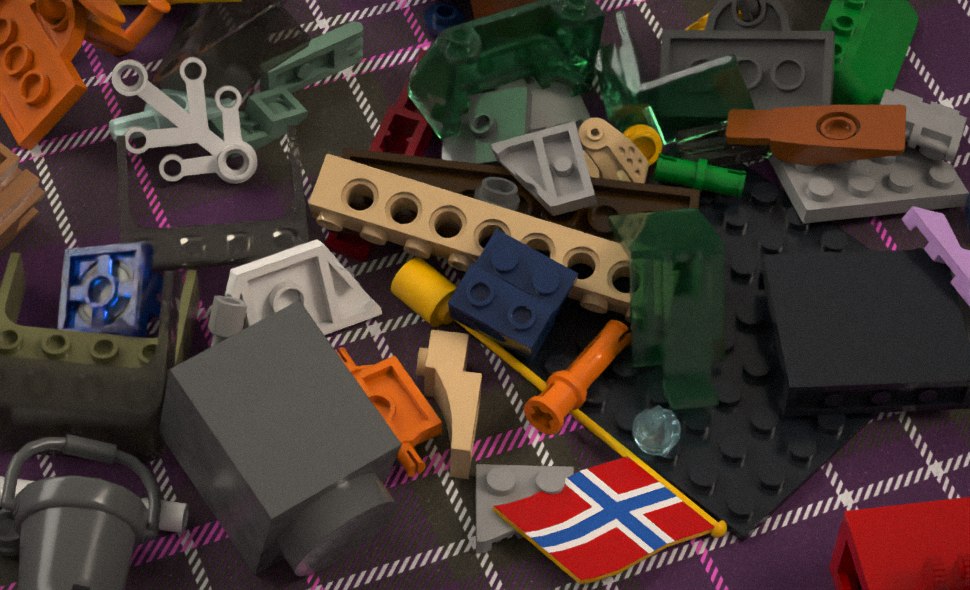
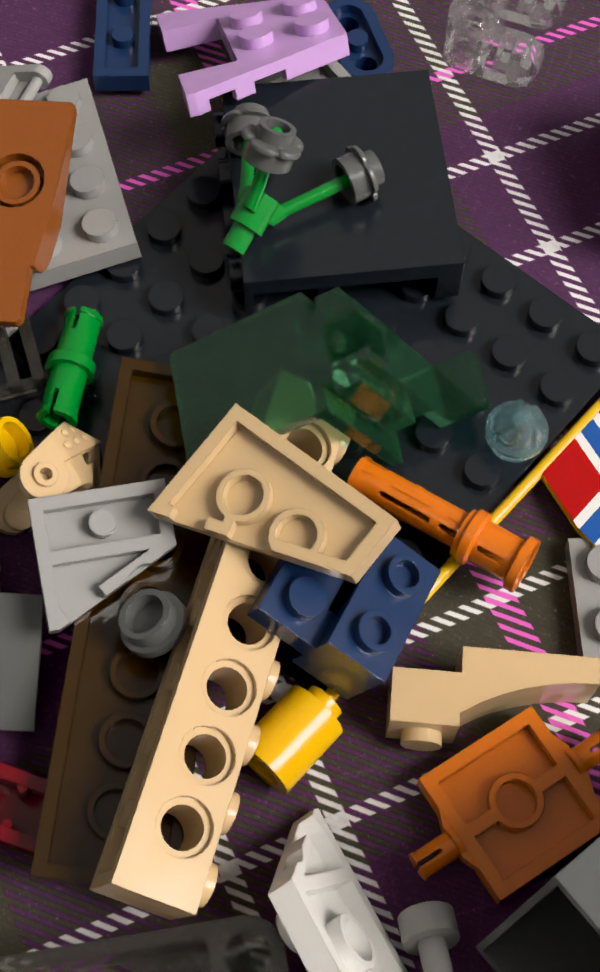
camera: 90 degrees left, 15 degrees up
(569, 234) = (275, 500): none -> tan wing
(840, 233) = (272, 147): none -> plant

